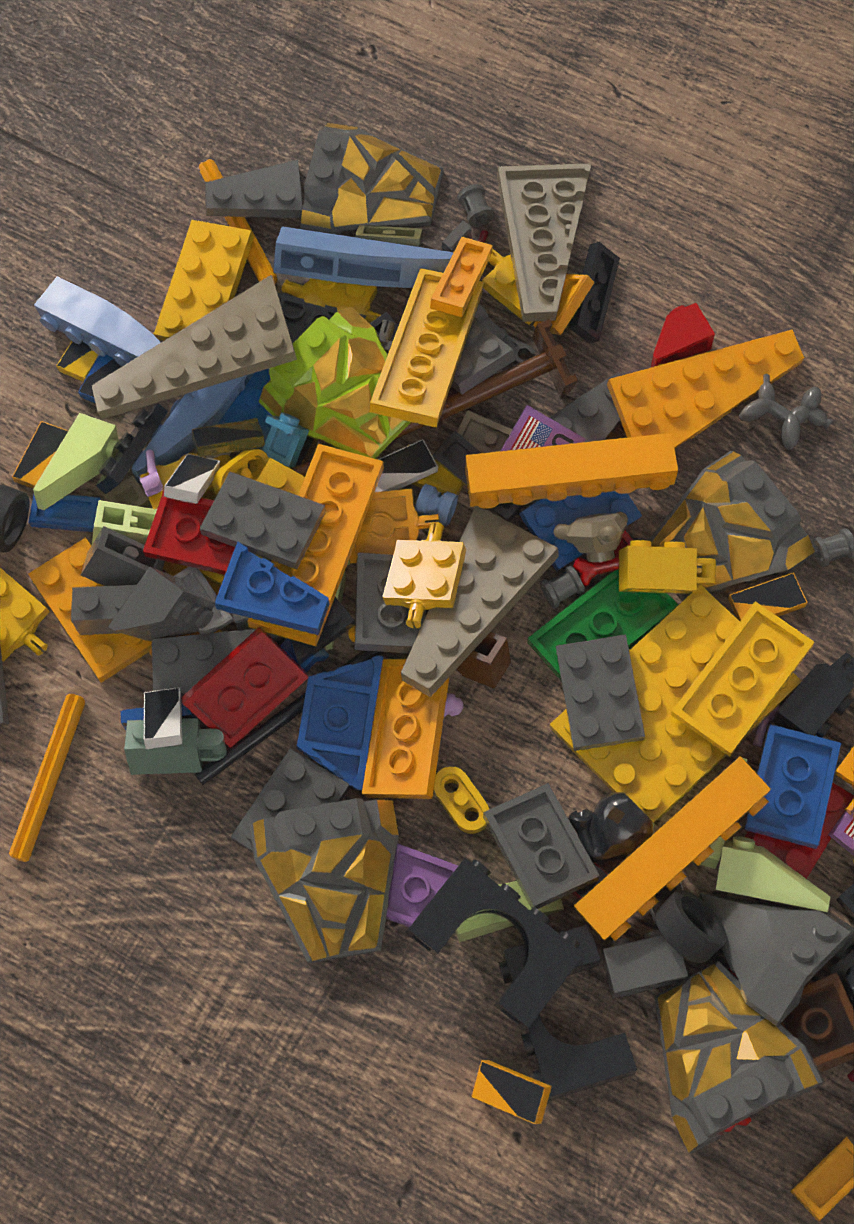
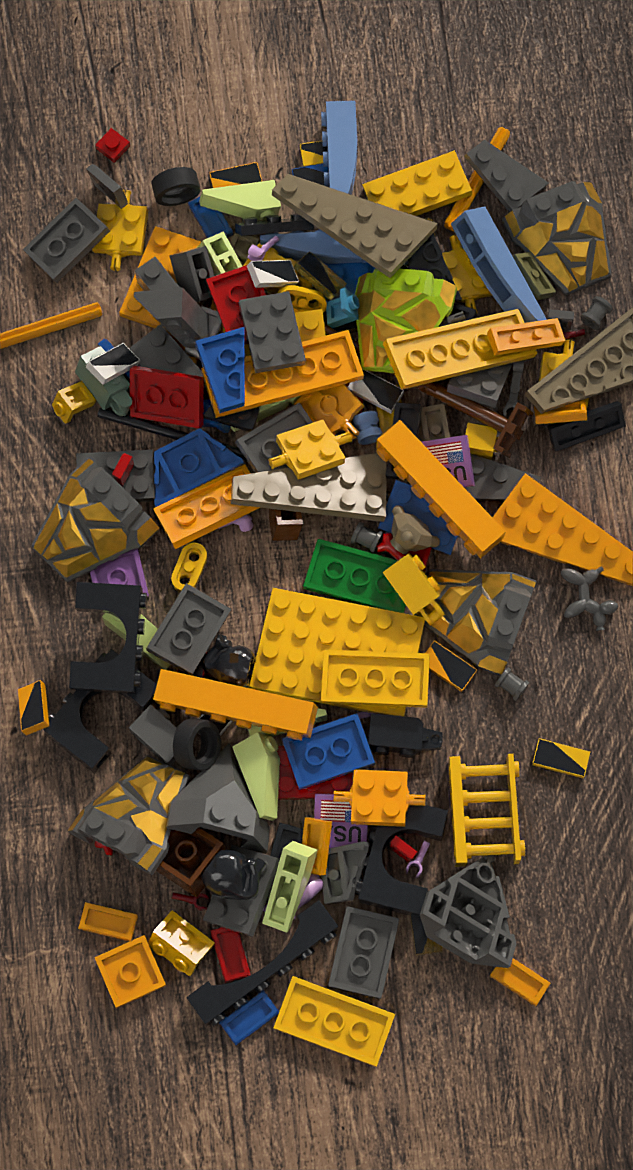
camera: 50 degrees right, 5 degrees up
(164, 800) = (72, 400): none -> yellow bracket
(294, 790) = (123, 469): none -> red tile
(539, 395) = (481, 440): none -> yellow brick
(600, 693) = (309, 602): dark grey plate -> none
(683, 335) = (592, 499): red slope -> none

